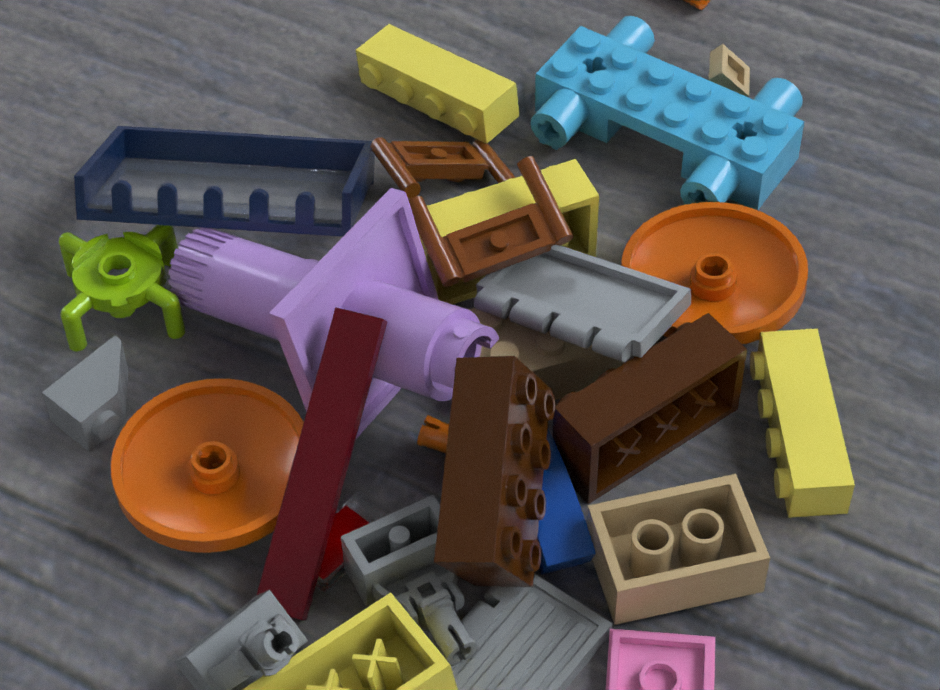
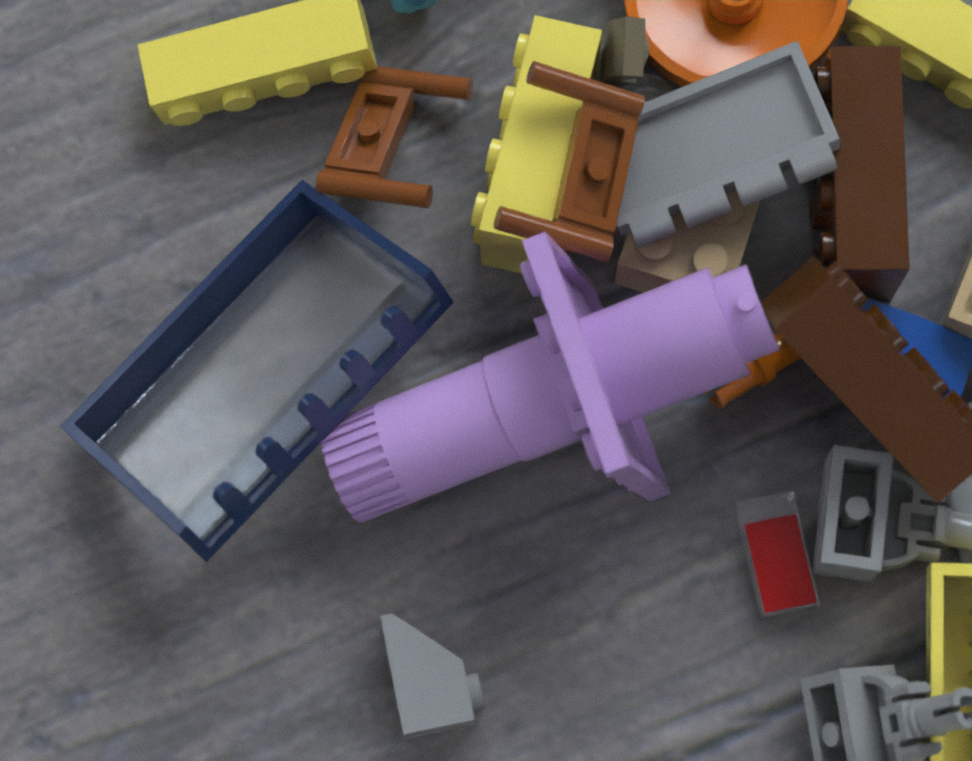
camera: 50 degrees left, 25 degrees up
(120, 294) = (297, 594): lime plate -> none
(206, 464) = (629, 565): orange dish -> none
(322, 460) = (730, 521): dark red tile -> none
(603, 230) = (623, 51): none -> dark tan slope

